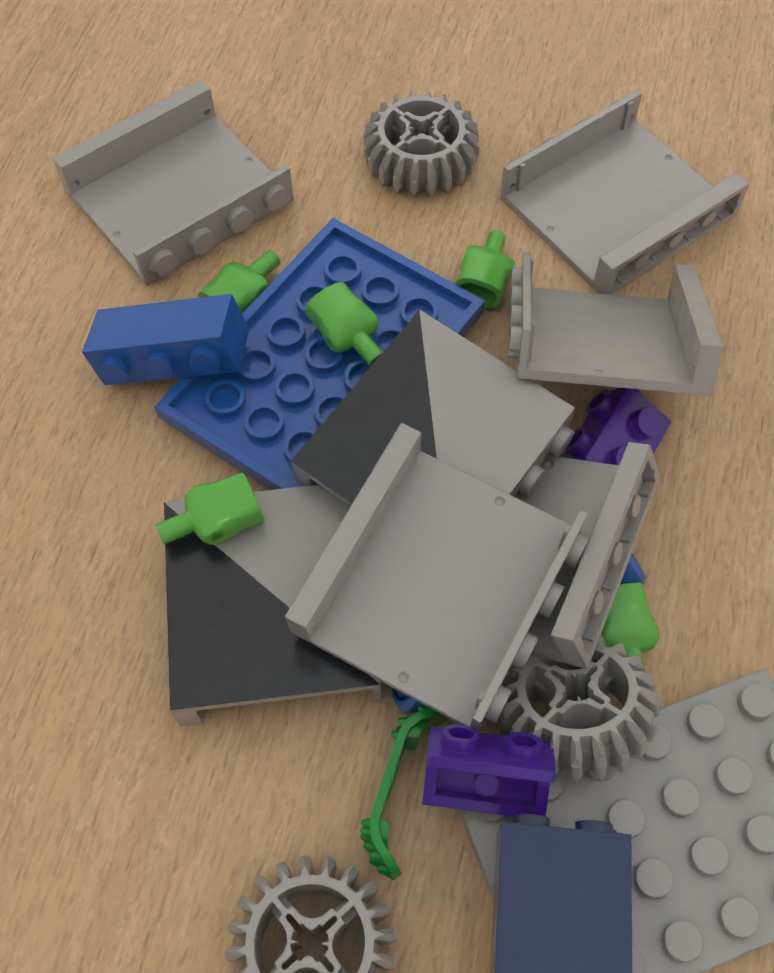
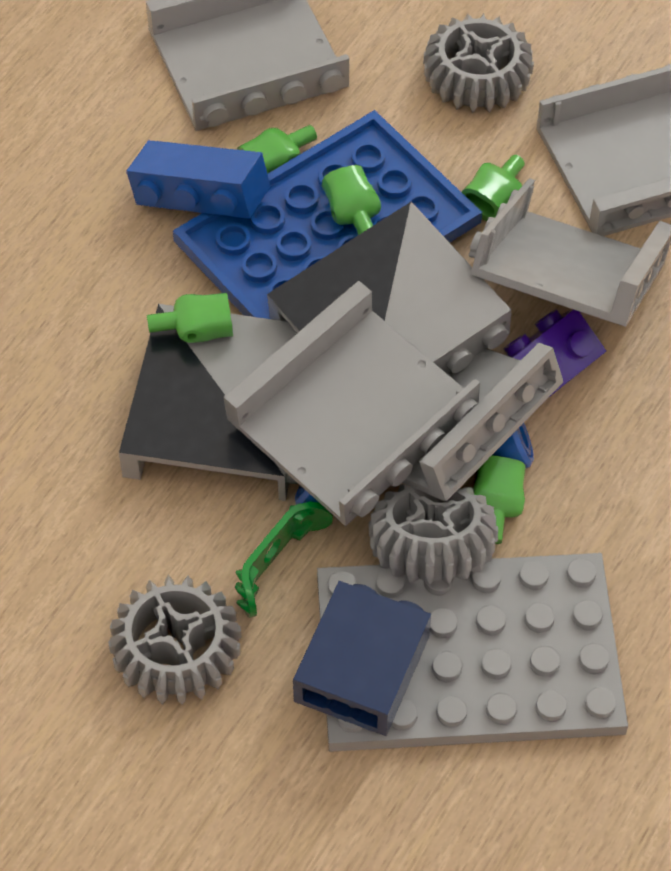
camera: 15 degrees right, 5 degrees down
(488, 771) = (341, 550): dark purple bracket -> none

